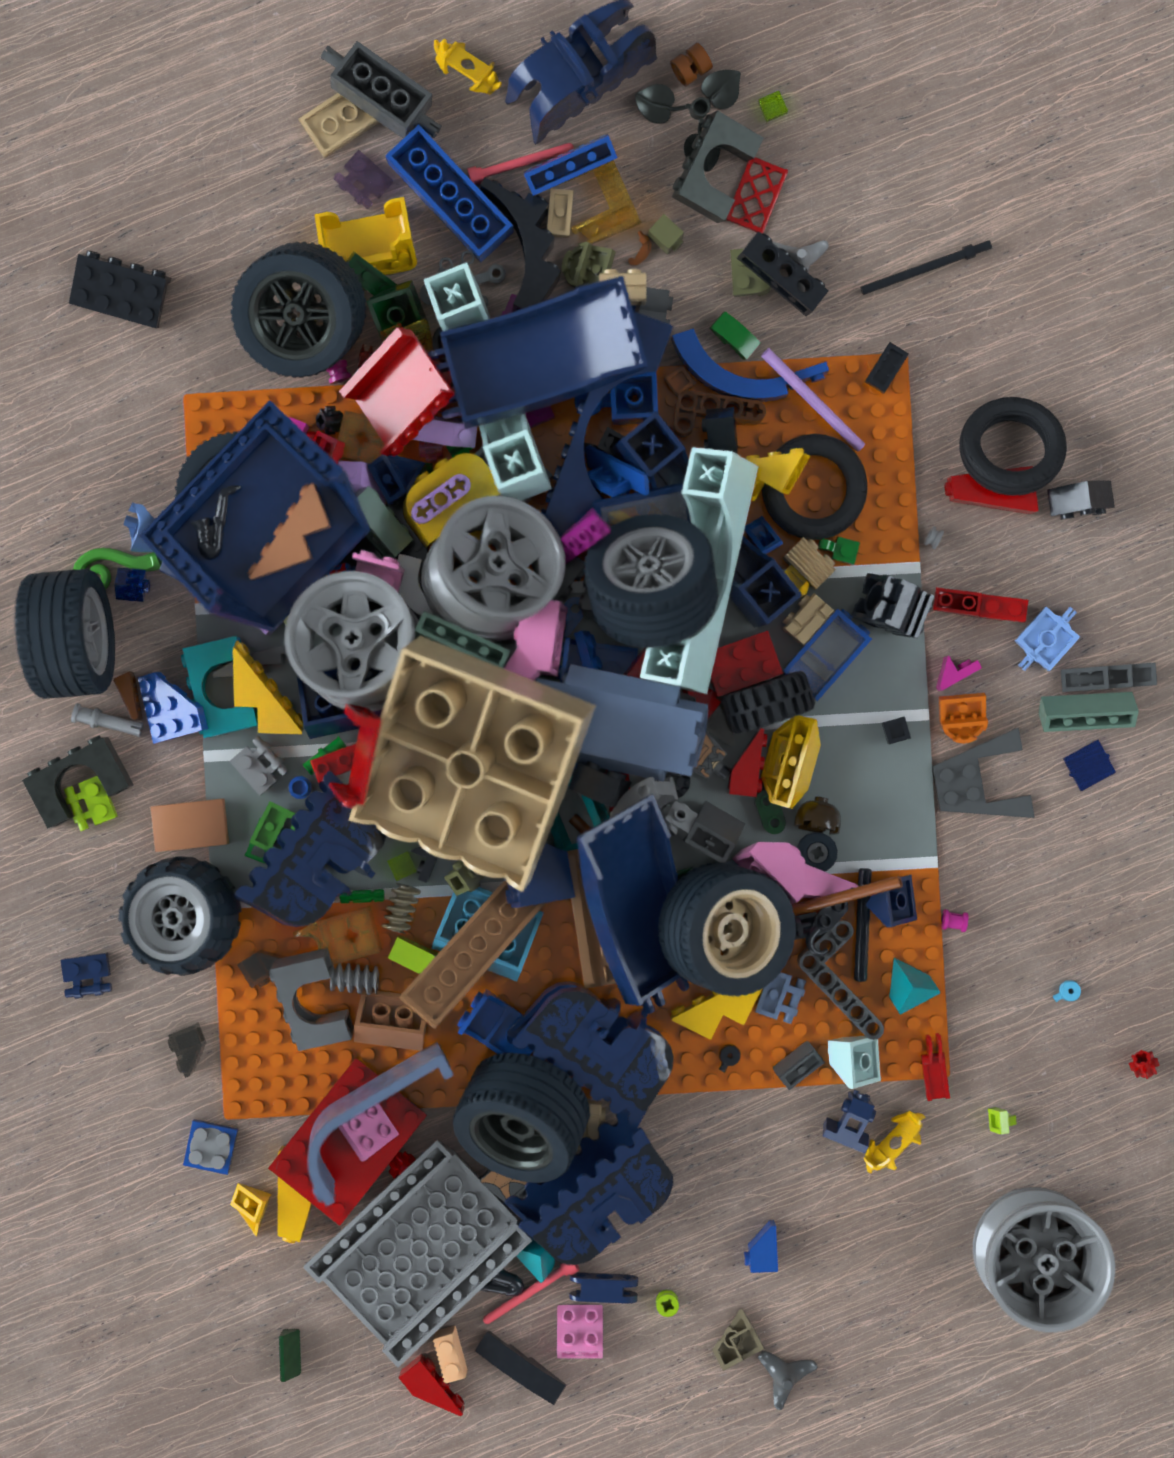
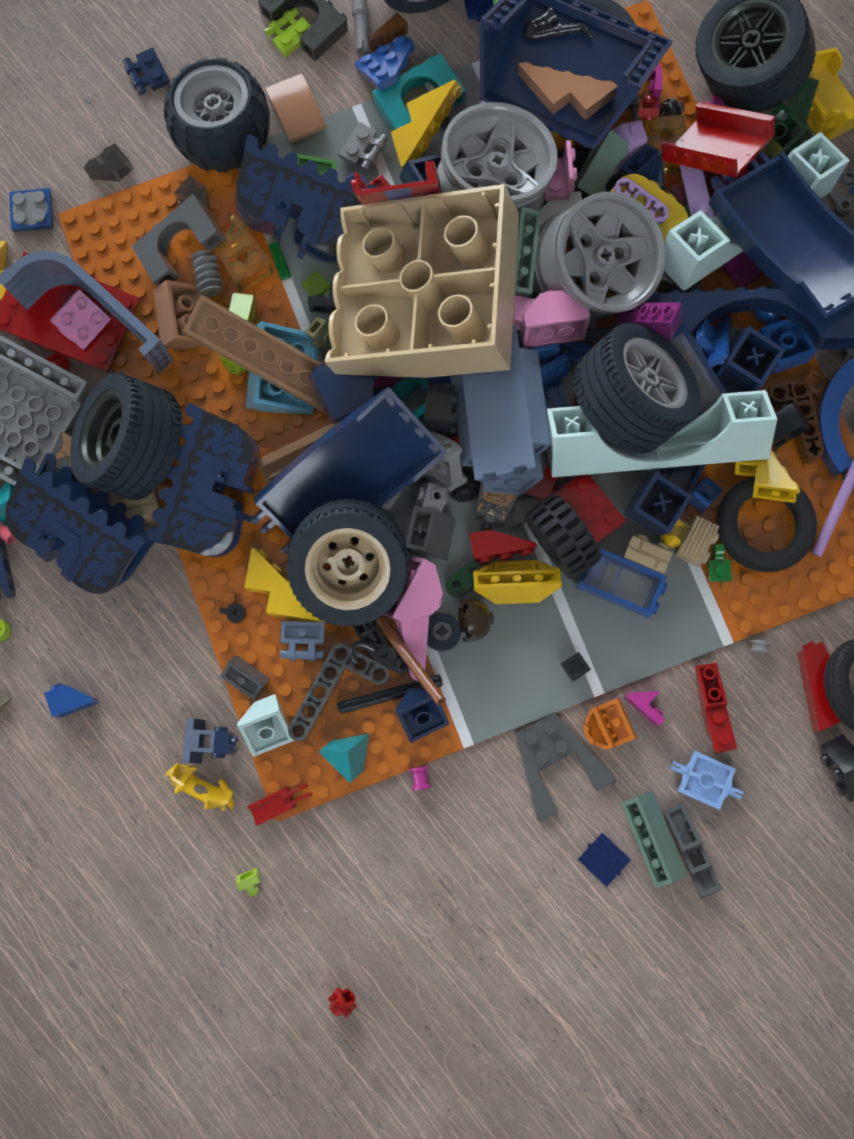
camera: 75 degrees right, 10 degrees down
(401, 908) = (279, 293): dark tan piece -> none
(490, 1022) = (204, 389): blue bracket -> none
(893, 605) = (688, 623): black piece -> none
(1064, 994) = (384, 904): medium azure piece -> none
(1085, 1287) = (79, 968): light grey wheel -> none

